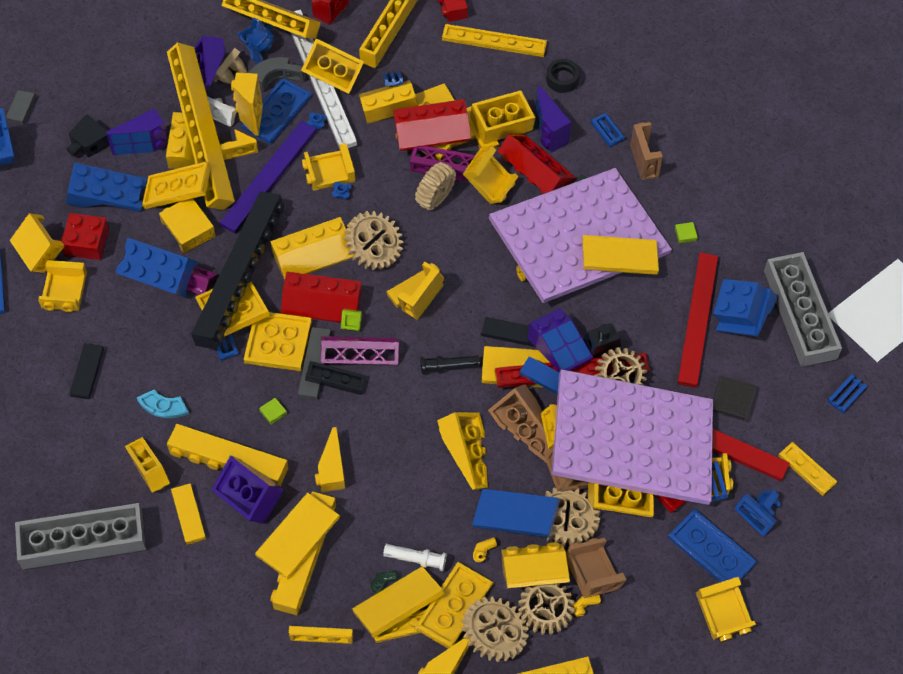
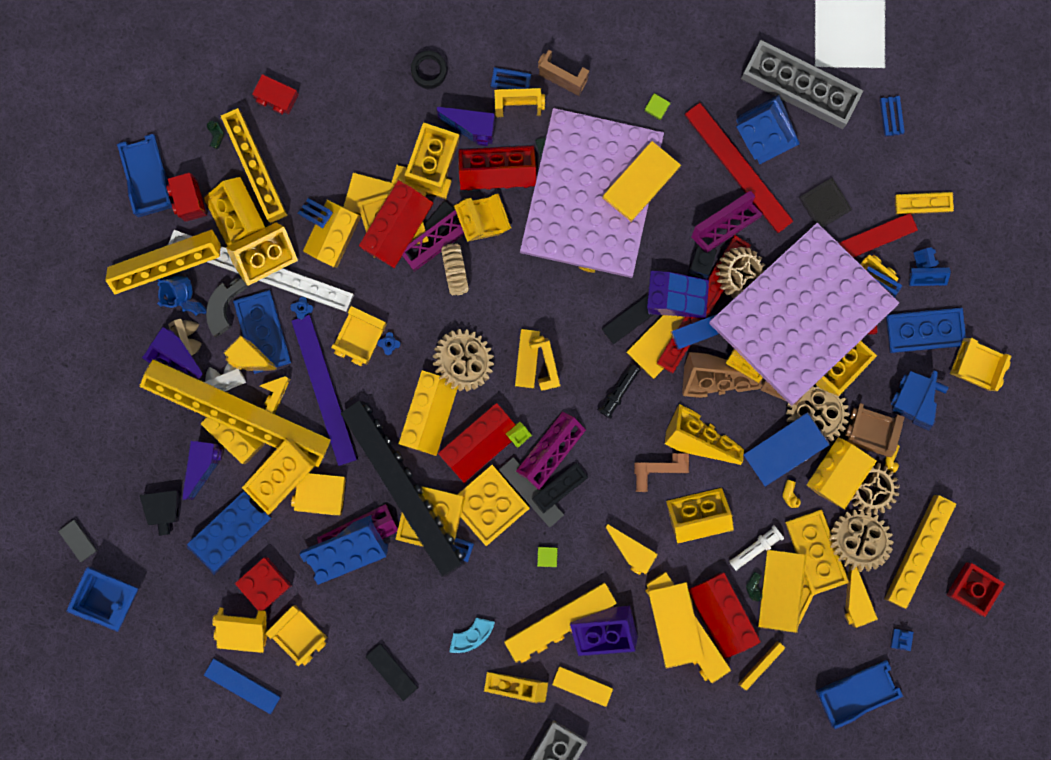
camera: 50 degrees left, 25 degrees up
(339, 574) = (724, 615): none -> red slope
(350, 30) = (233, 210): none -> yellow slope
(403, 424) = (679, 464): none -> nougat beam
(403, 493) = (700, 515): none -> yellow slope
(494, 40) = (342, 92): yellow tile -> none
(592, 130) = (512, 97): none -> yellow panel
(648, 328) = (724, 216): none -> magenta fence
(651, 577) = (917, 399): none -> blue piece

